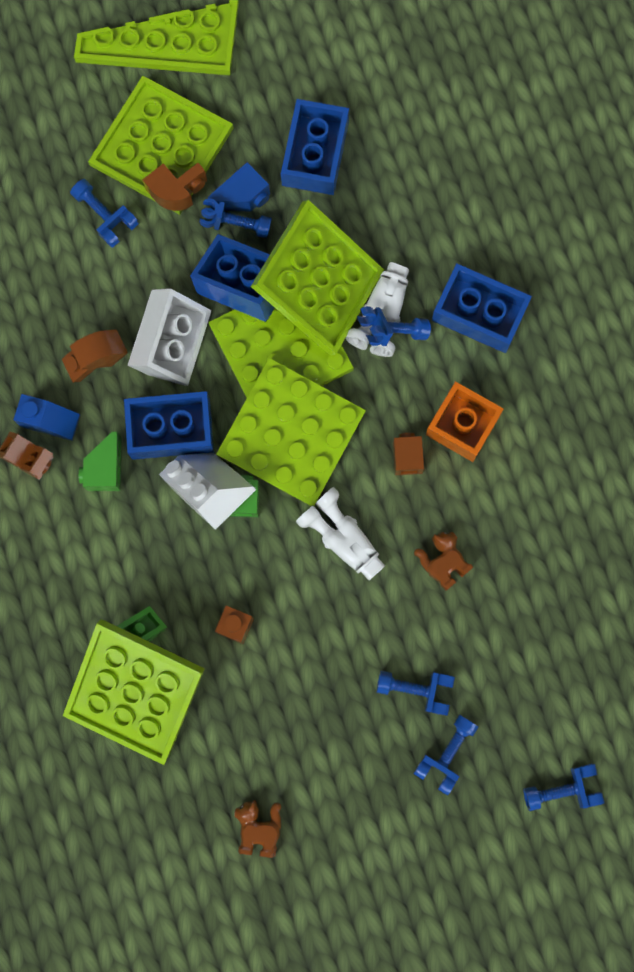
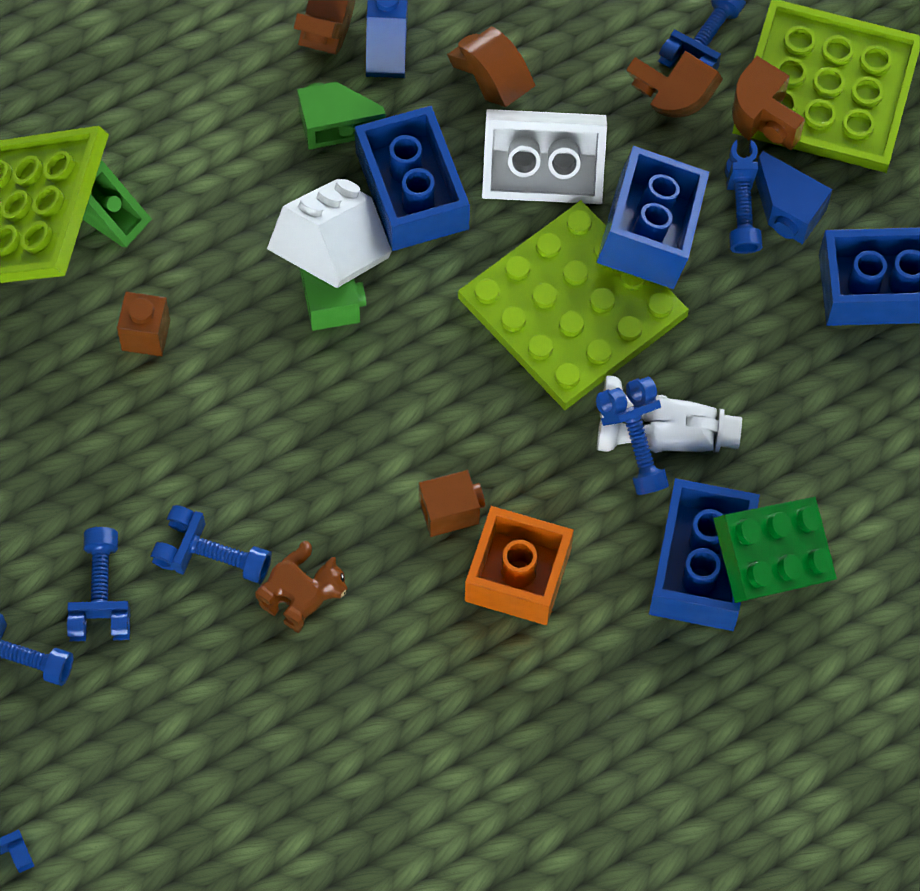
camera: 70 degrees right, 15 degrees down
(147, 235) = (680, 93): none -> dark orange brick
(291, 432) = (443, 338): lime plate -> none
(318, 277) = (679, 309): lime plate -> none
(348, 539) = (300, 448): white piece -> none
(420, 588) = (253, 563): none -> blue bar
(492, 264) = (774, 549): none -> green plate

